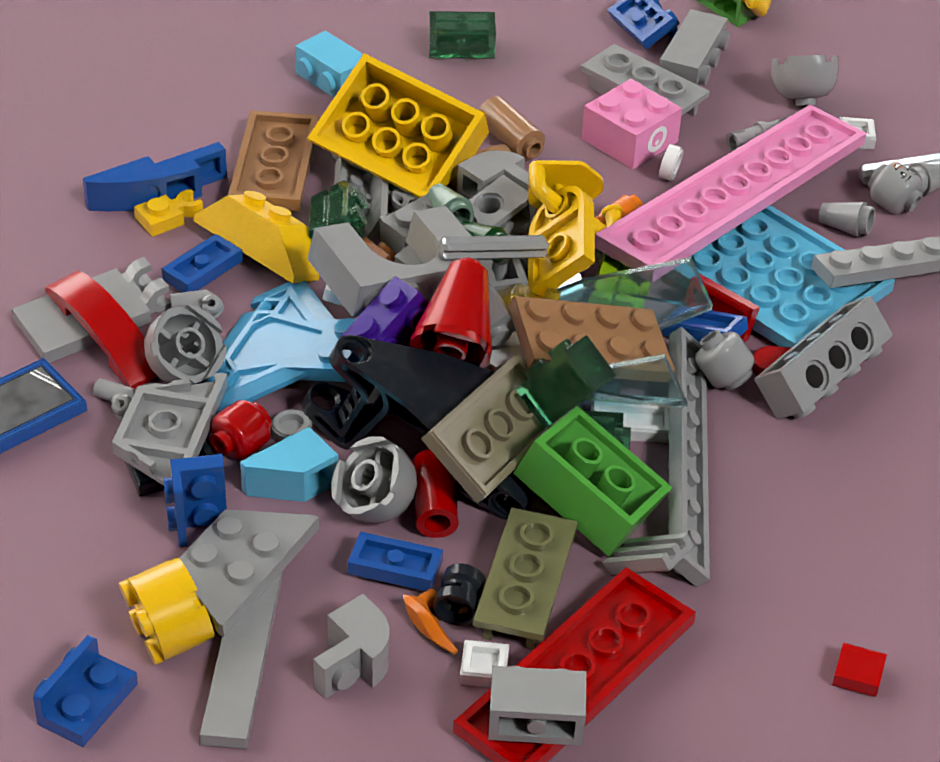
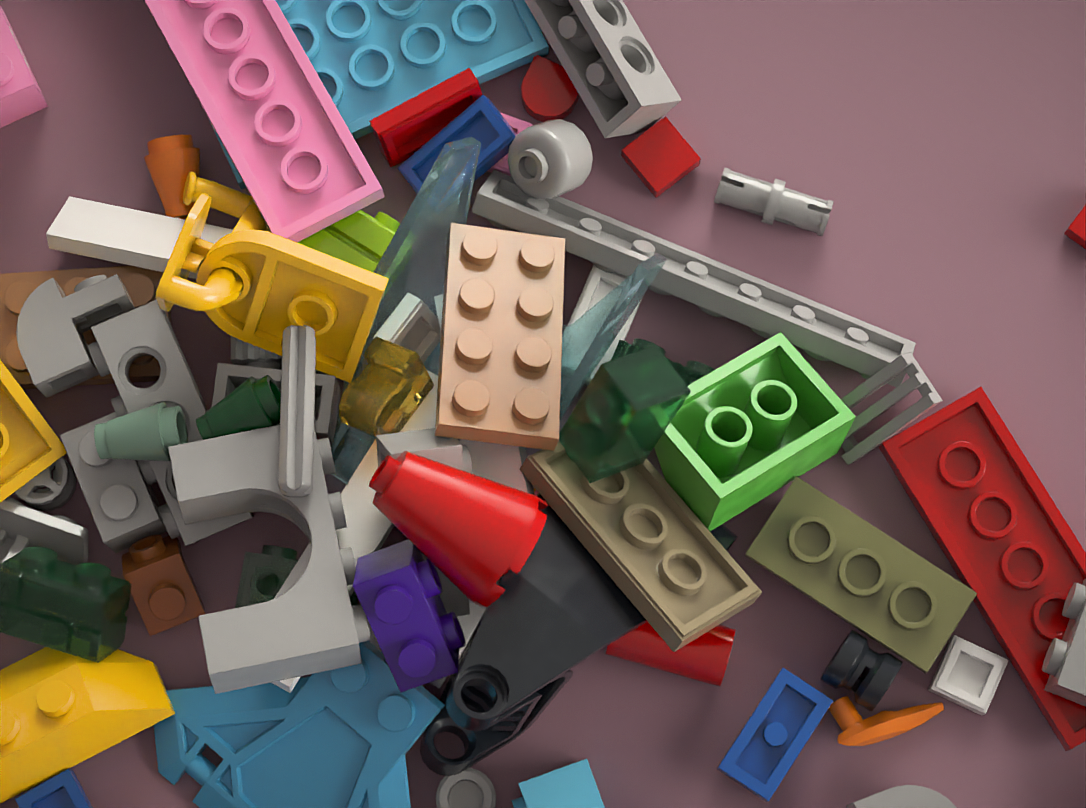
camera: 70 degrees left, 35 degrees up
(374, 481) = (652, 724): light grey cylinder -> none
(671, 162) = (77, 49): white tile -> none
(762, 424) = (660, 157): none -> red tile
(765, 483) = (773, 201): none -> light grey pin

